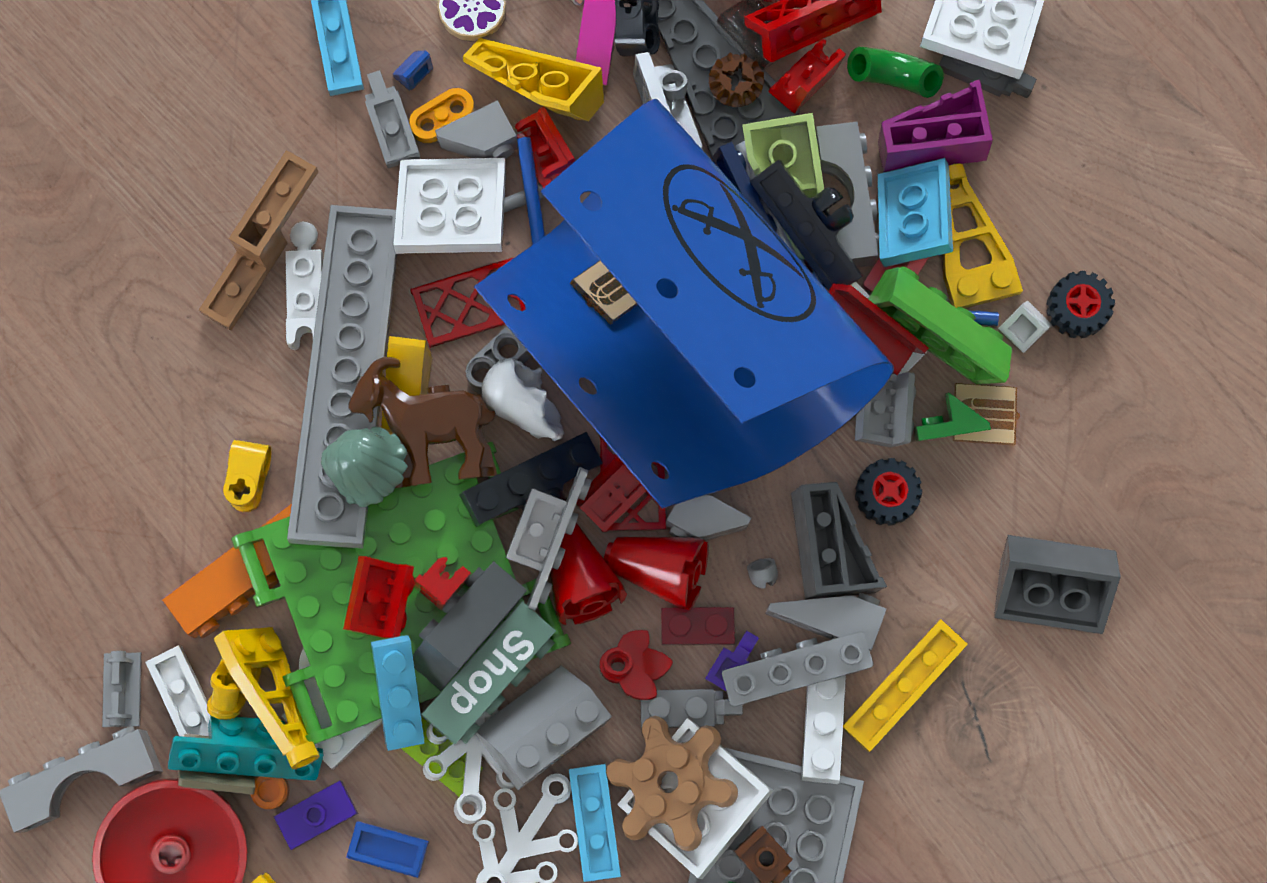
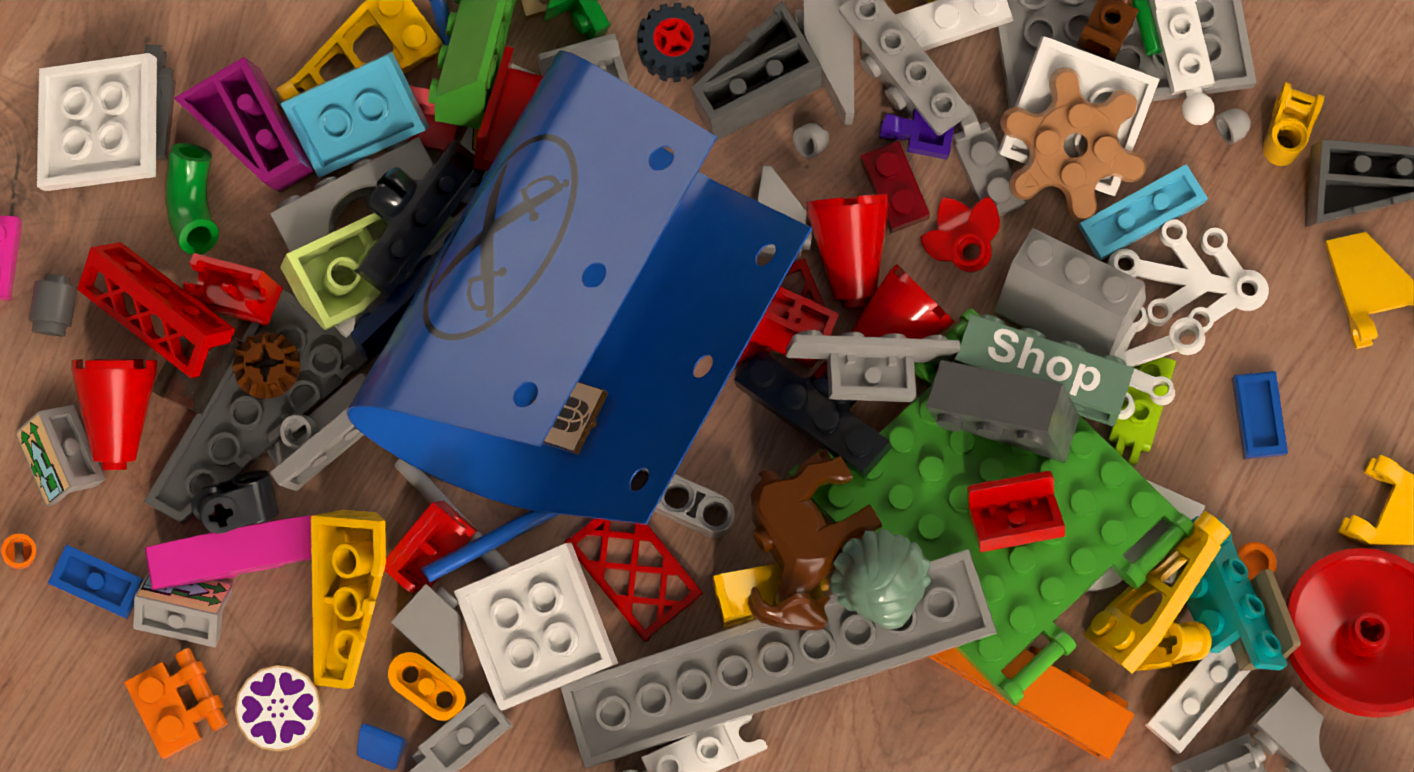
camera: 110 degrees left, 0 degrees up
(246, 468) = (921, 732): yellow piece -> none
(316, 815) = (1258, 503): dark purple plate -> none
(397, 692) = (1104, 454): medium azure plate -> none
(440, 588) = (975, 439): red hinge -> none
(518, 398) = (733, 459): white piece -> none

